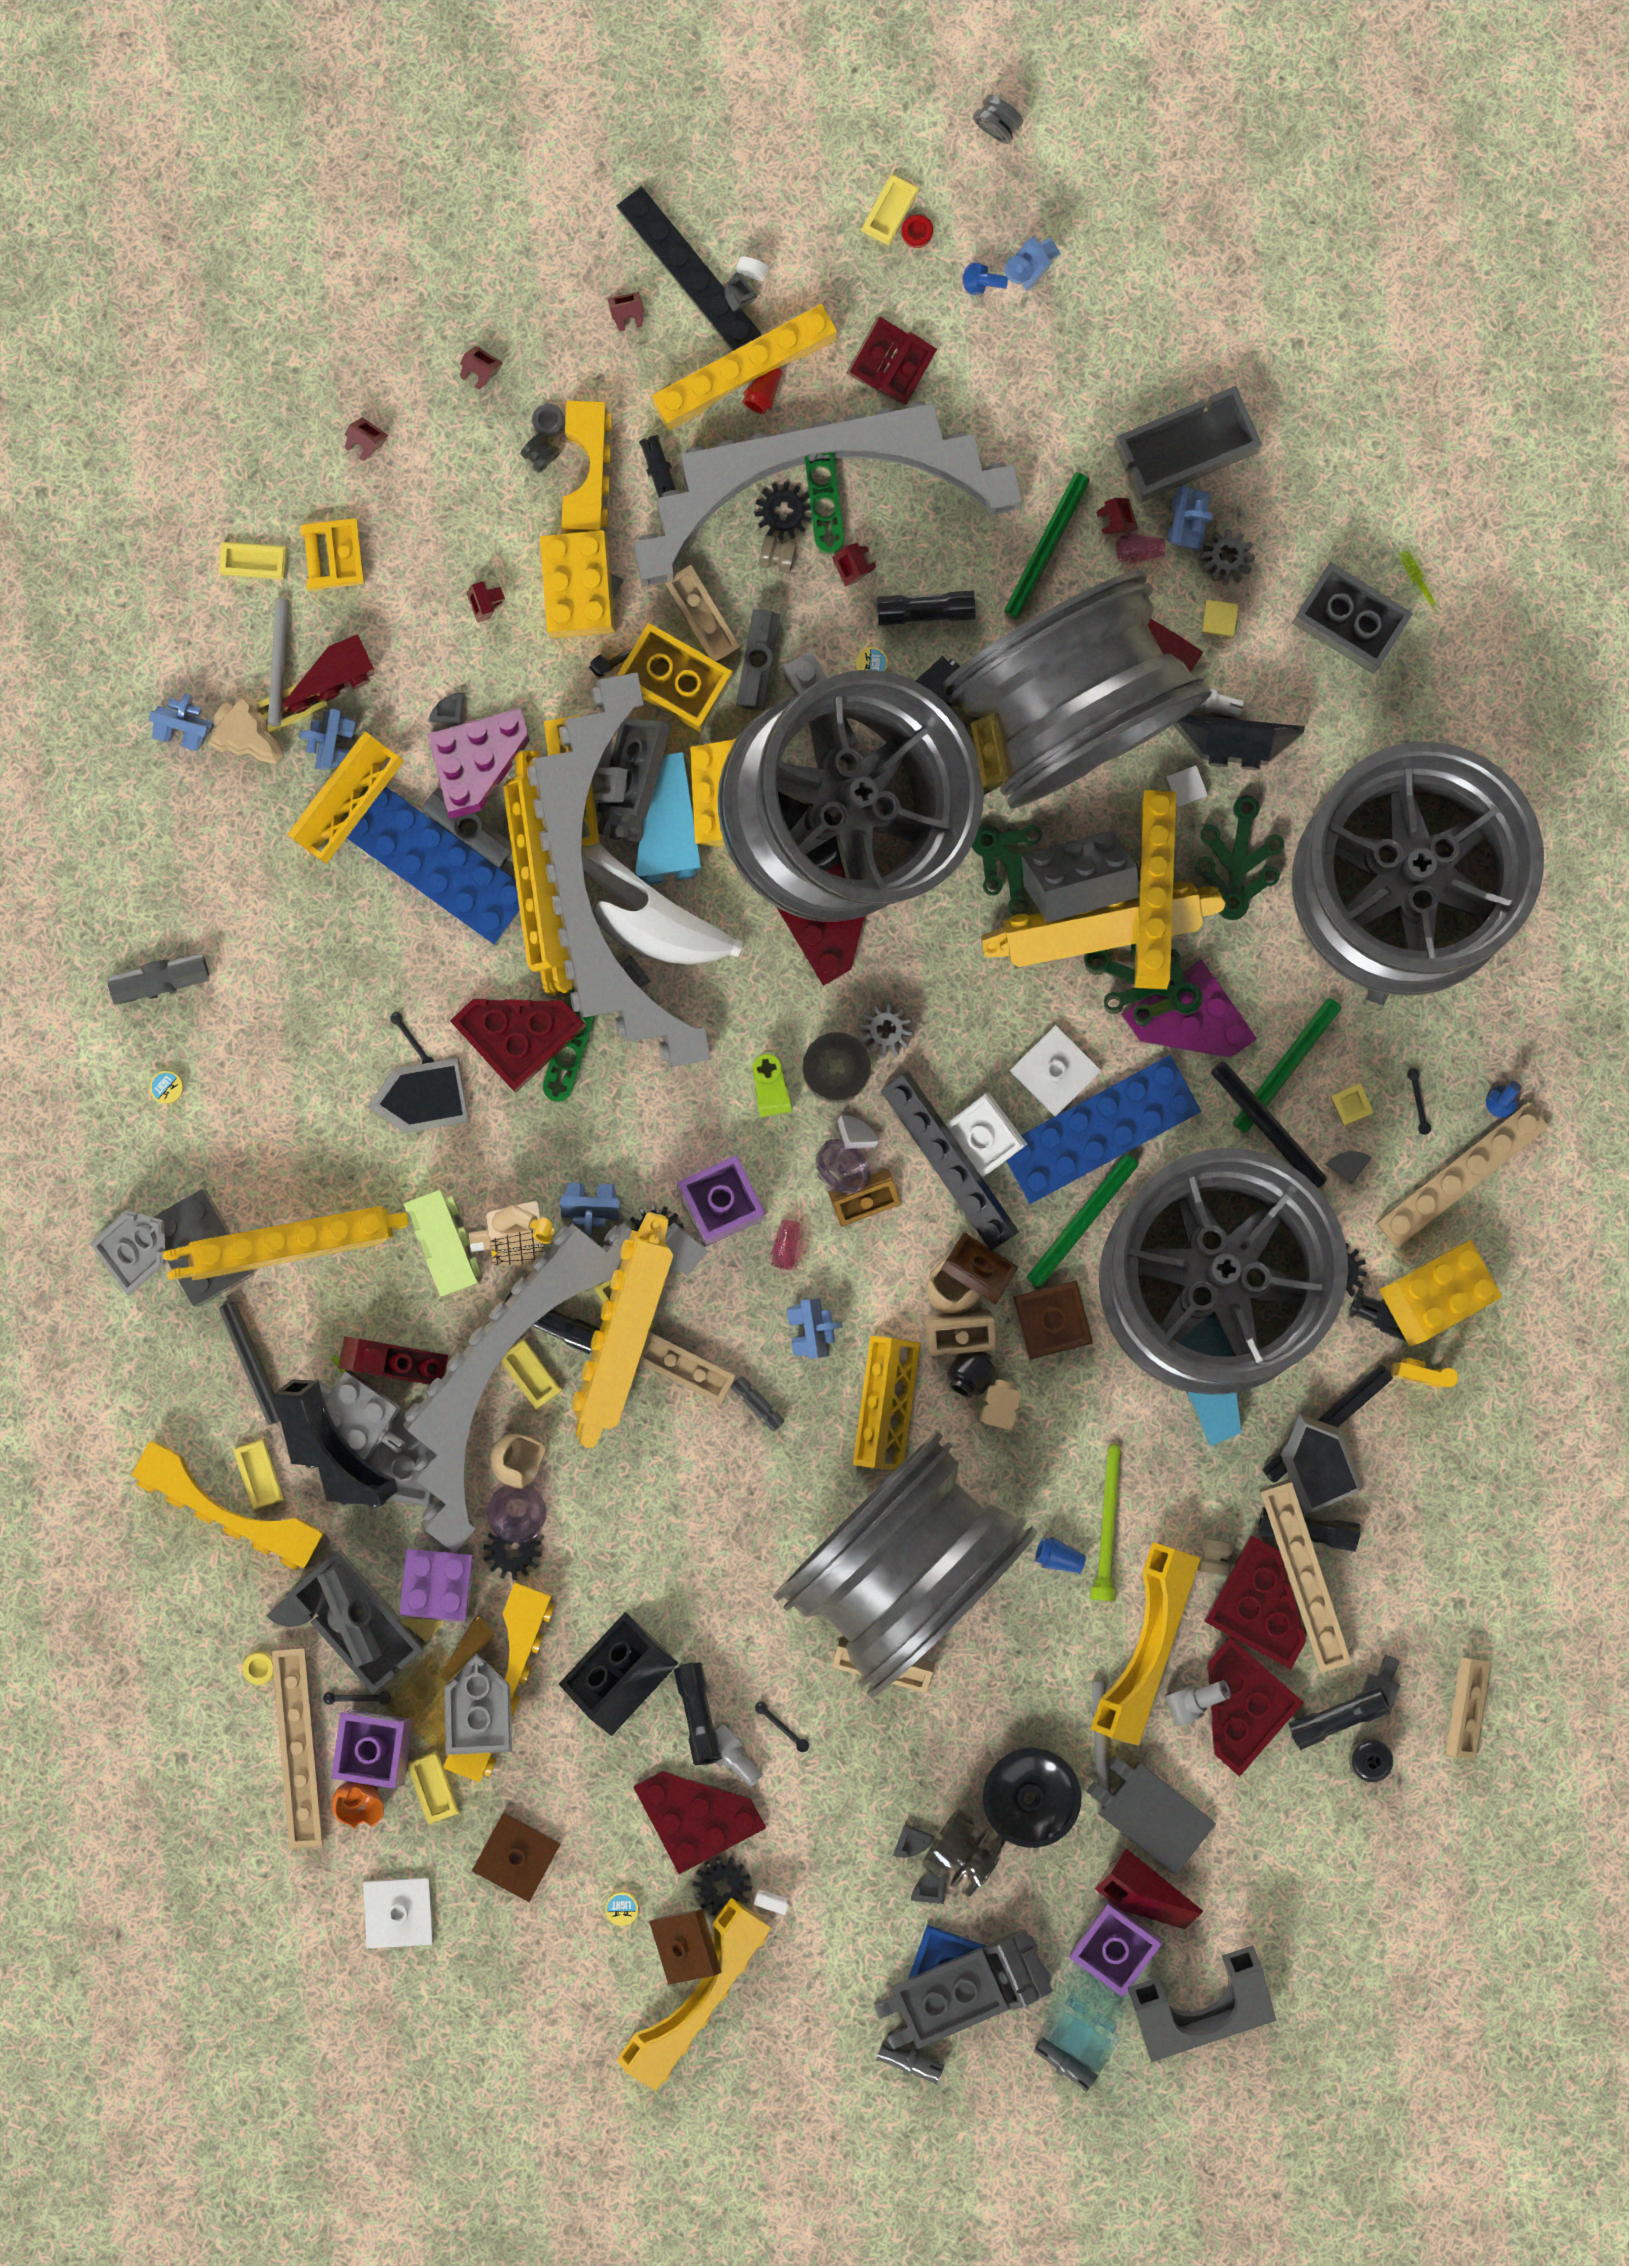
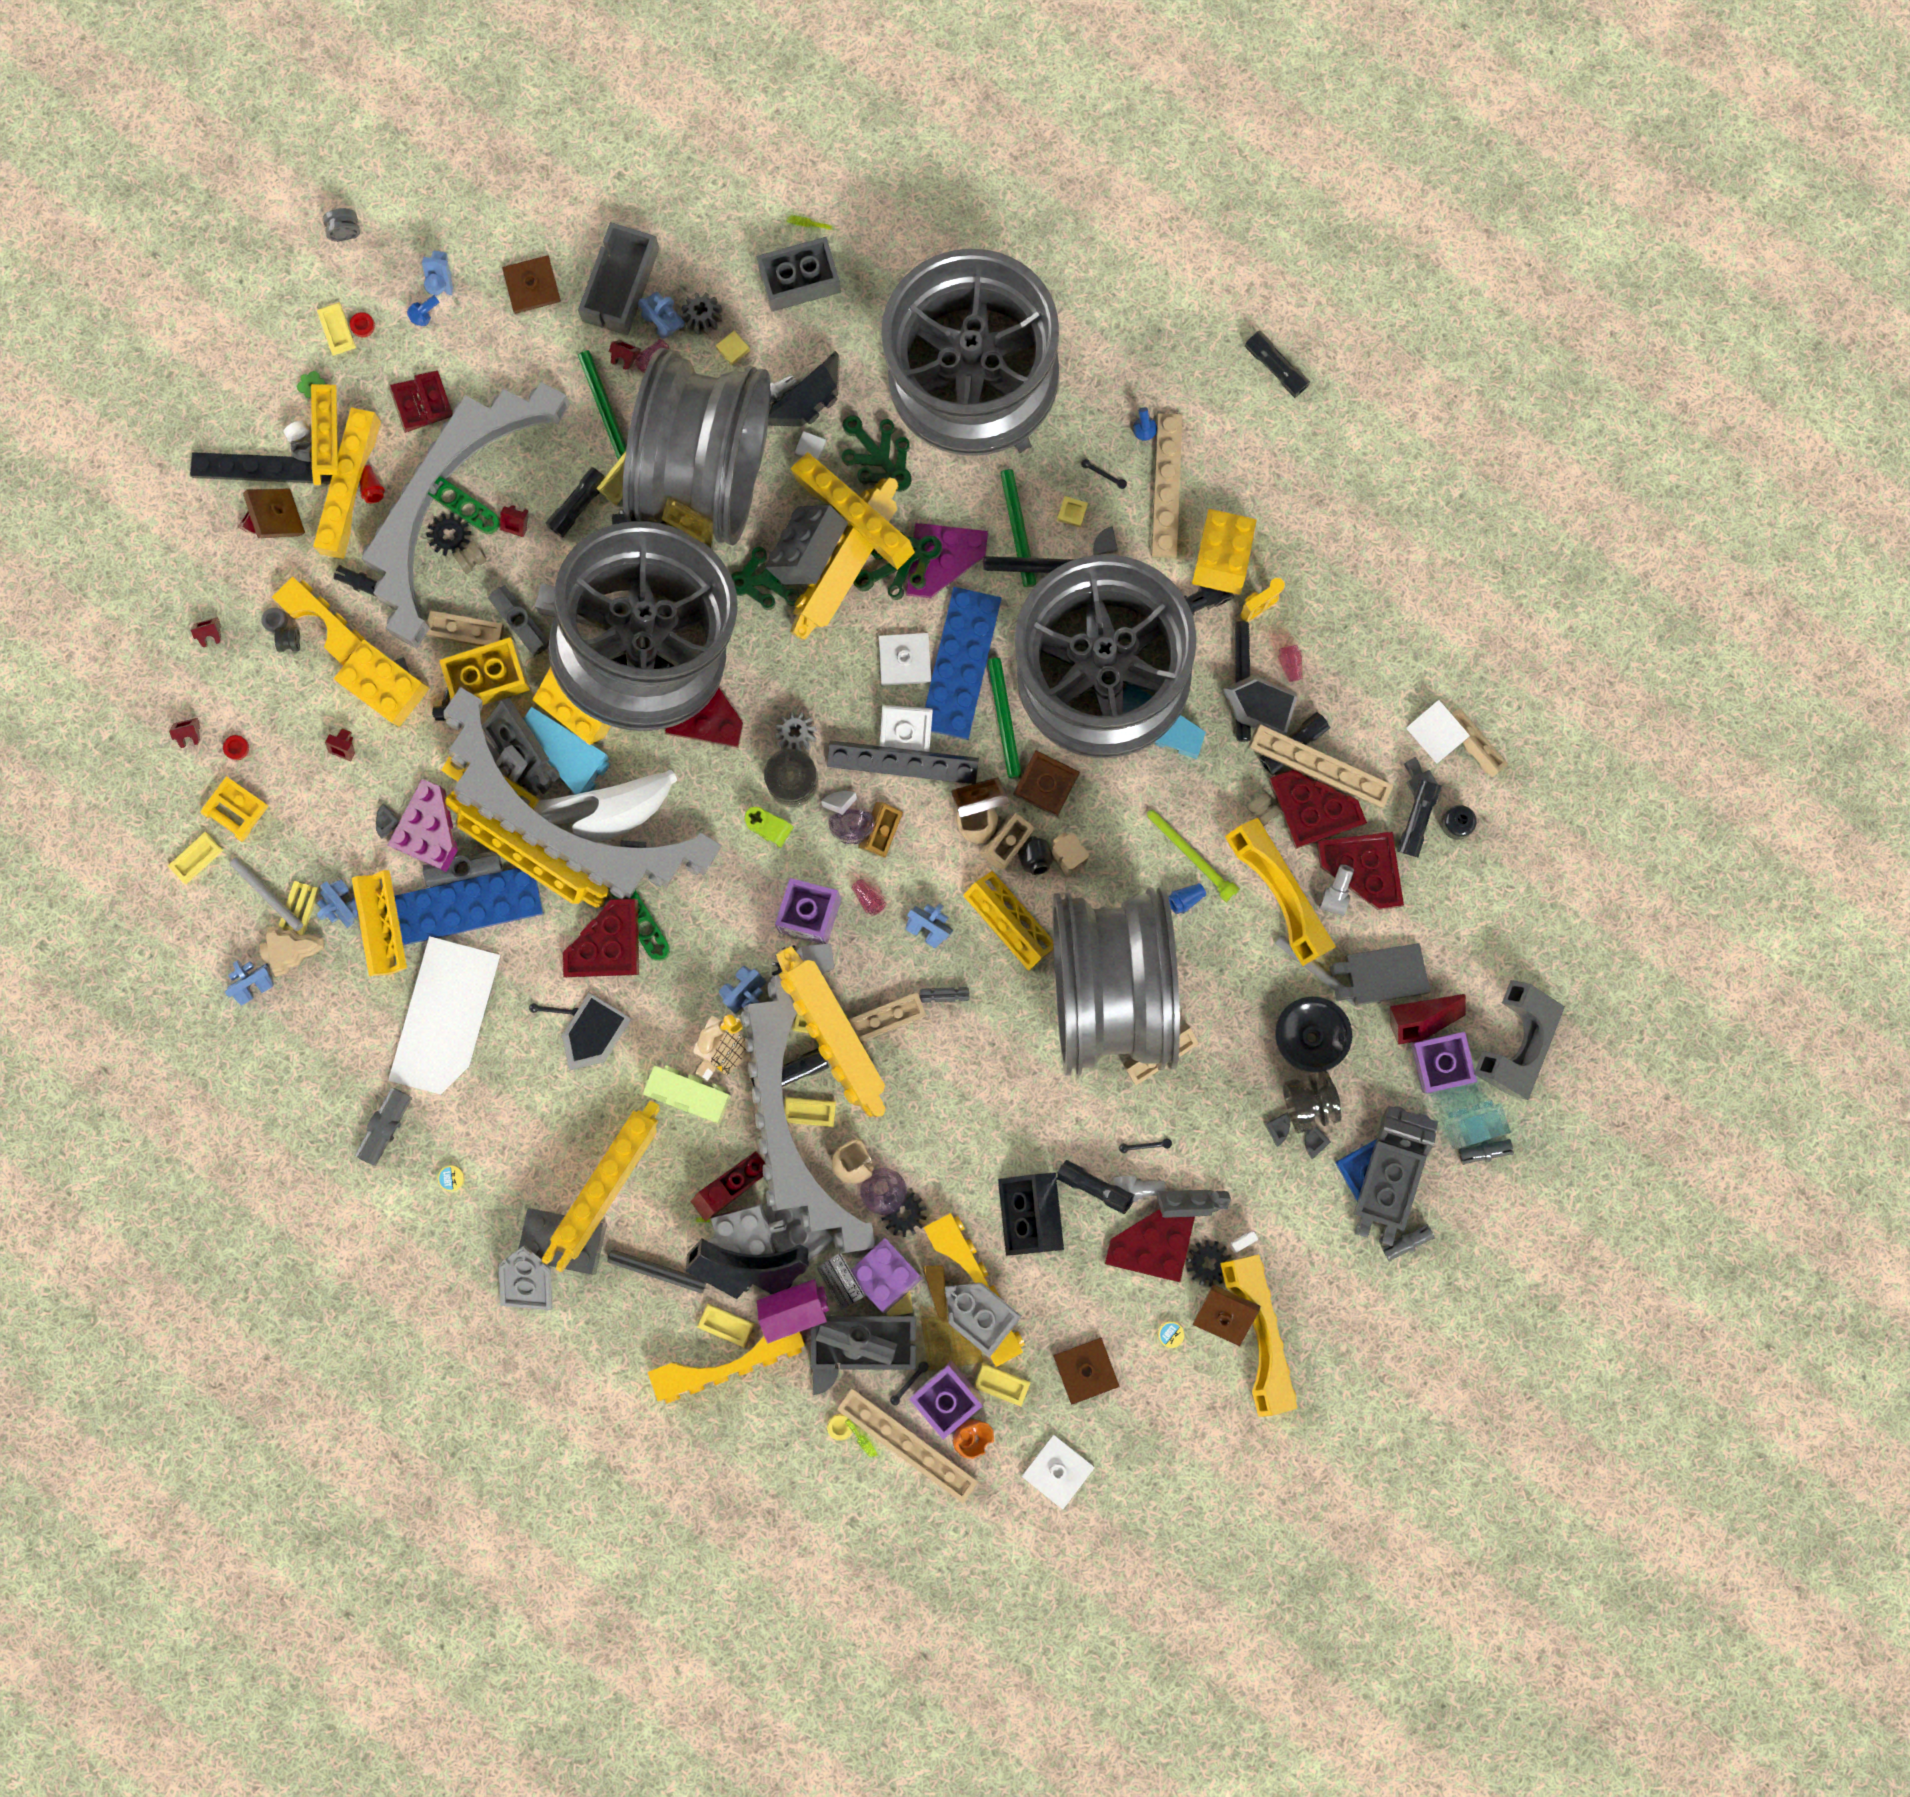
camera: 45 degrees left, 5 degrees down
(264, 1701) = (862, 1440): none -> clear neon green piece
(313, 939) = (444, 1015): none -> white sticker
(325, 1528) = (792, 1310): none -> magenta brick
(337, 668) = (301, 865): dark red slope -> none
(392, 499) = (235, 747): none -> red tile
(394, 1548) = (840, 1281): none -> light grey sticker
(651, 324) = (273, 513): none -> reddish brown plate
(765, 1820) = (1192, 1202): none -> dark grey hinge
(774, 299) = (324, 431): none -> yellow fence
(804, 232) = (306, 380): none -> bright green plant
(985, 628) = (612, 484): none -> light yellow tile
(1107, 360) = (531, 284): none -> reddish brown plate
(1389, 1455) = (1291, 661): none -> clear pink cone
(1445, 1661) = (1437, 731): none -> white sticker

